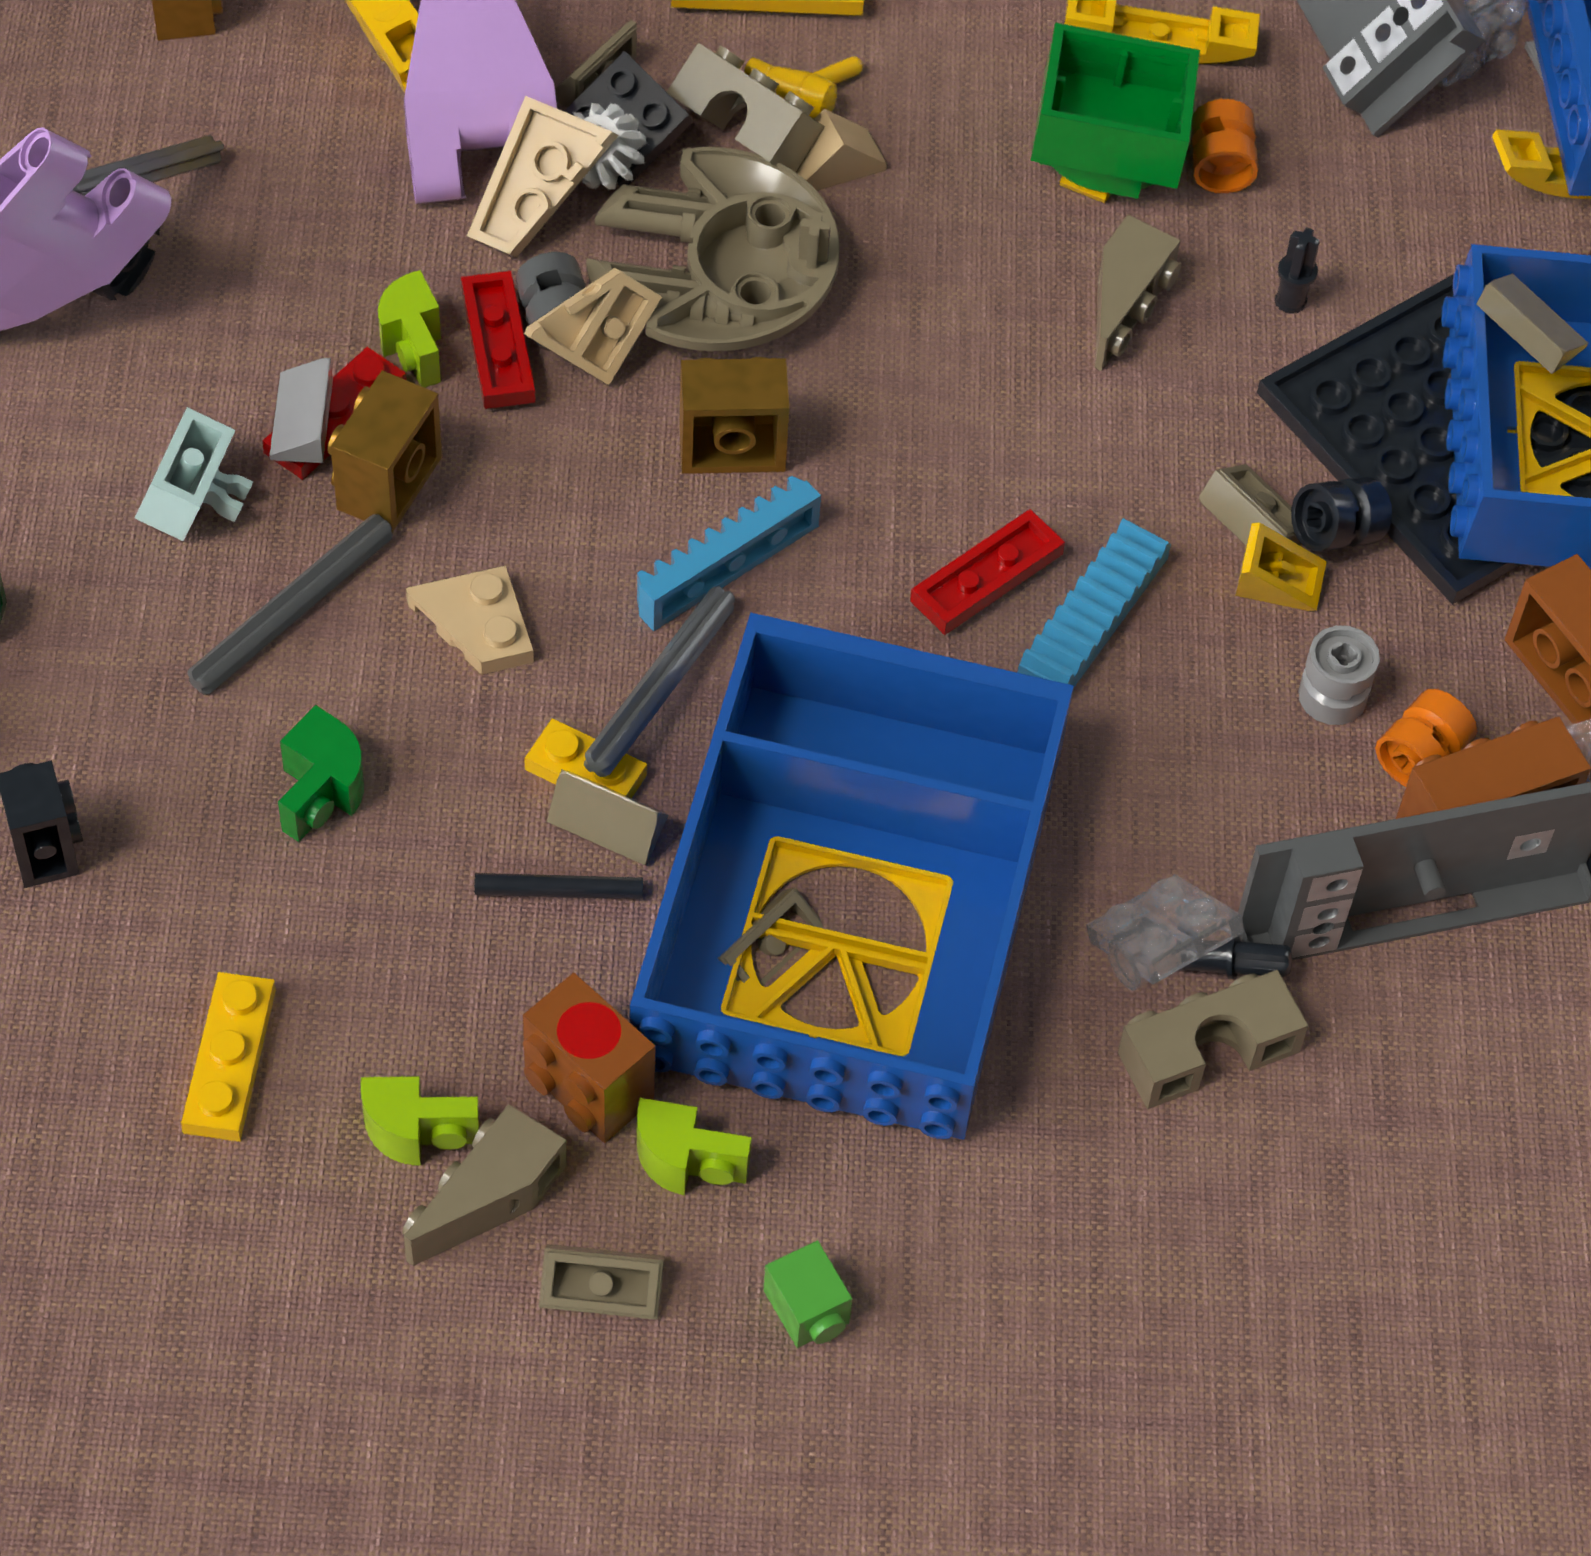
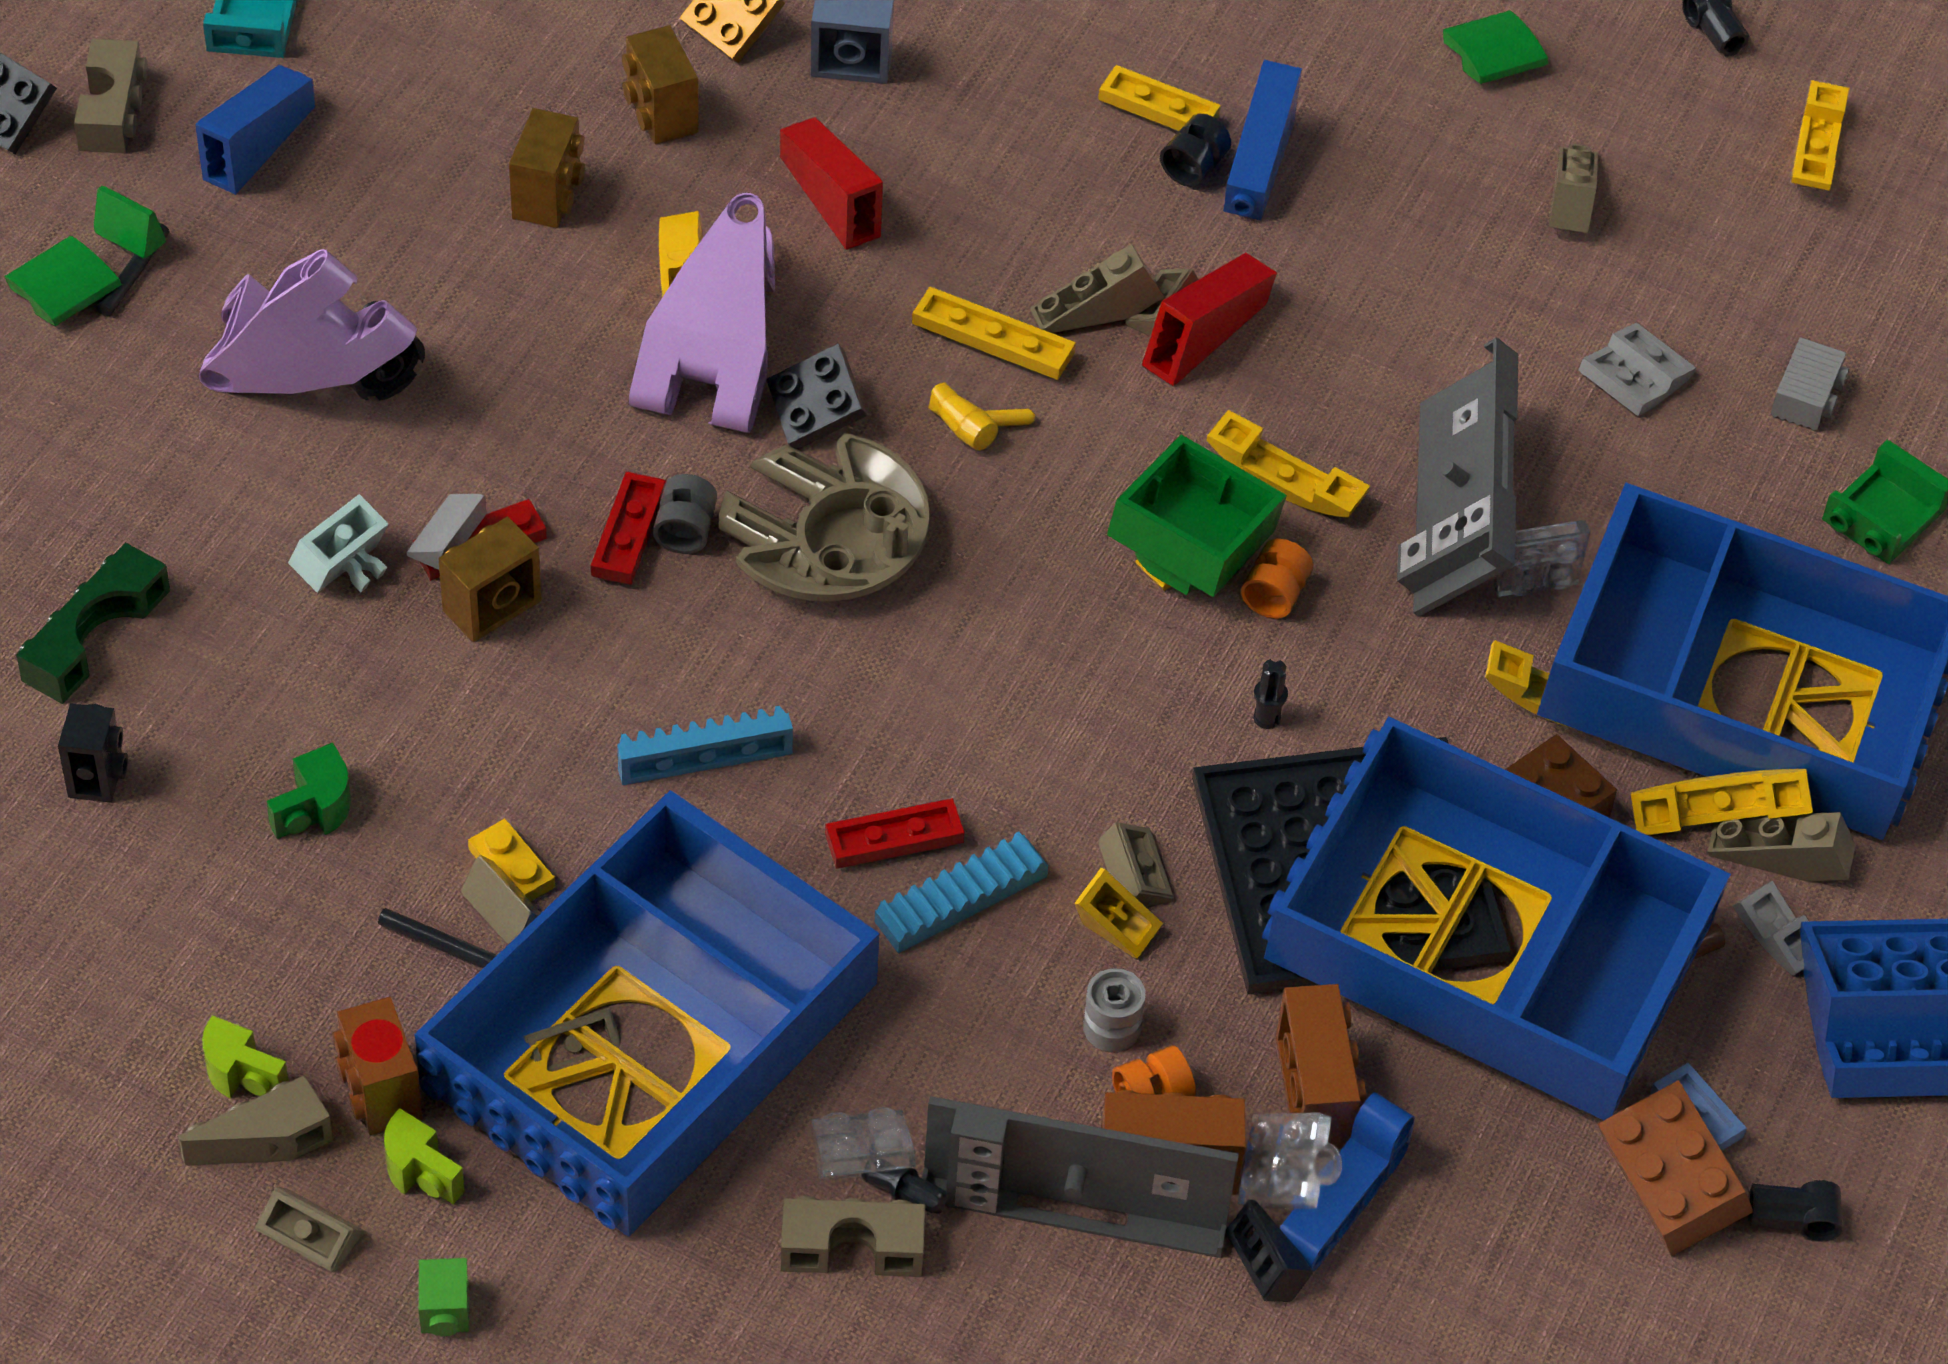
camera: 25 degrees right, 5 degrees down
(159, 163) = (436, 309): dark grey axle -> none
(228, 1056) = (139, 968): yellow plate -> none
(289, 604) = (366, 666): dark grey axle -> none
(410, 326) = (567, 490): lime brick -> none
(478, 617) = (496, 726): tan wing -> none
(535, 174) = (718, 413): tan wing -> none
(583, 76) = (850, 339): dark tan slope -> none
(597, 324) = (699, 541): tan wing -> none
(622, 151) = (782, 410): white gear -> none
(659, 682) = (594, 821): dark grey axle -> none
(718, 88) = (923, 435): arch -> none
(733, 415) = (762, 645): pearl gold brick -> none
(840, 153) = (966, 477): tan slope -> none
(1132, 273) = (1139, 654): dark tan slope -> none
(1341, 513) = (1189, 890): black wheel -> none
(1531, 322) = (1397, 791): dark tan slope -> none

